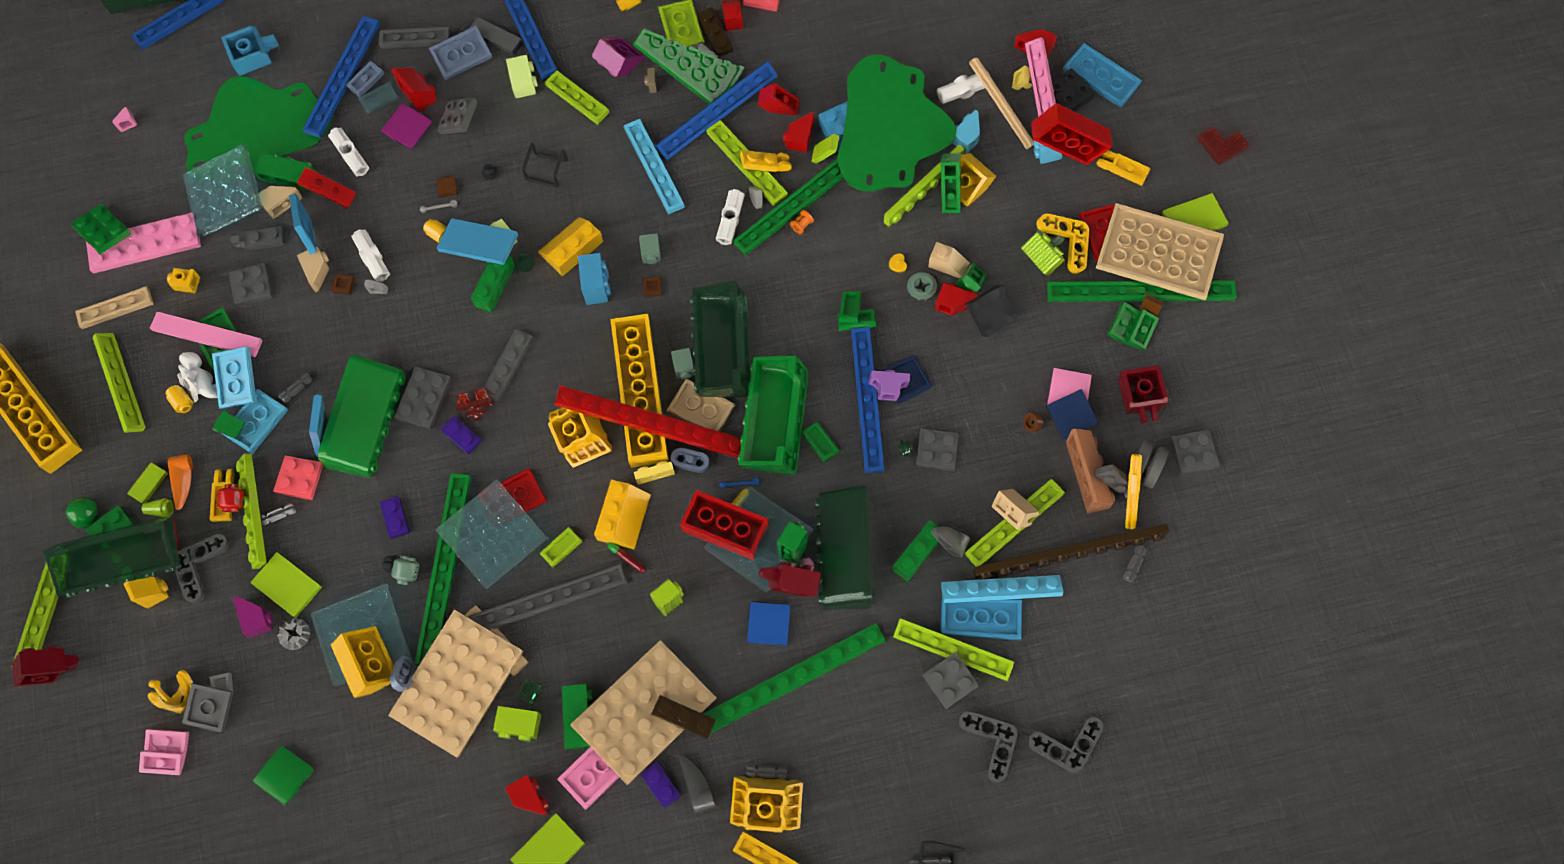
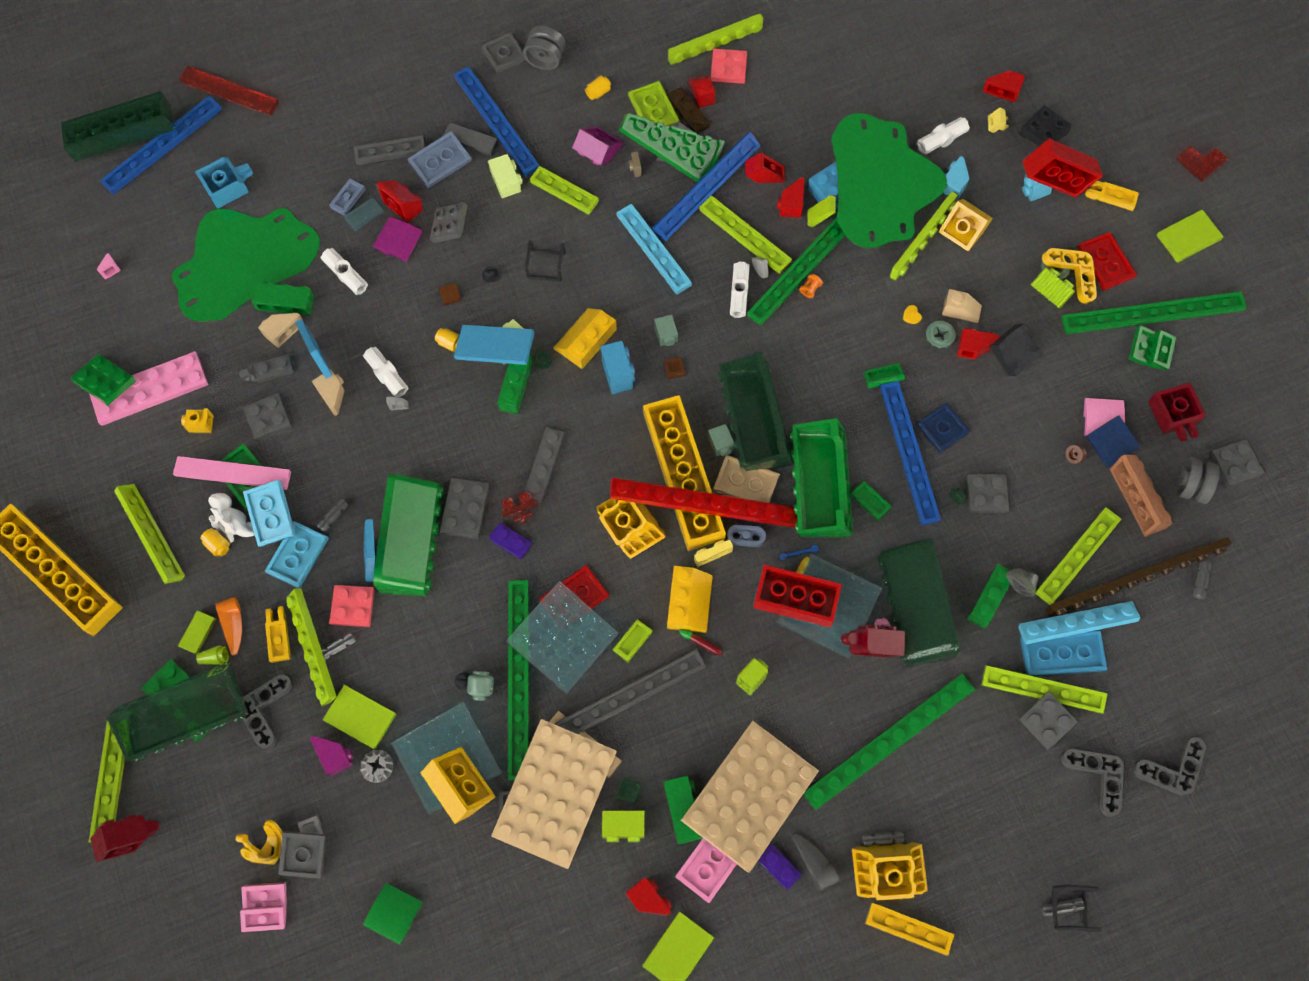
camera: 10 degrees left, 0 degrees up
(81, 512) = (133, 671): green hair -> none
(114, 307) = (130, 458): tan tile -> none
(147, 591) = (218, 743): yellow slope -> none
(222, 190) = (222, 326): clear light blue plate -> none
(229, 425) = (272, 562): green tile -> none
(230, 498) = (288, 636): red head -> none
(326, 188) = (329, 310): red plate -> none
(341, 76) = (322, 197): blue plate -> none
(343, 284) = (362, 404): reddish brown tile -> none
(394, 517) = (458, 633): dark purple plate -> none
(402, 673) = (499, 791): sand blue plate -> none
(453, 203) = (459, 310): light grey hinge -> none
(683, 717) = (792, 795): dark brown plate -> none
(765, 161) = (764, 230): yellow hinge -> none
(768, 624) = (855, 689): blue tile -> none
(792, 543) = (872, 605): green brick -> none
(850, 307) = (875, 363): green tile -> none
(888, 383) = (930, 434): medium lavender brick -> none
(951, 182) = (952, 229): green slope -> none
(972, 278) = (988, 321): green slope -> none
(1001, 103) = (984, 146): tan axle -> none
(1014, 508) = (1077, 541): tan hinge -> none
(1040, 75) = (1017, 117): bright pink tile -> none
(1103, 75) = (1074, 108): dark azure tile -> none
(1114, 478) = (1172, 500): dark grey hinge -> none
(1133, 491) = (1191, 504): yellow axle -> none
(1151, 305) = (1167, 325): reddish brown tile -> none
(1160, 251) = (1166, 272): tan plate -> none

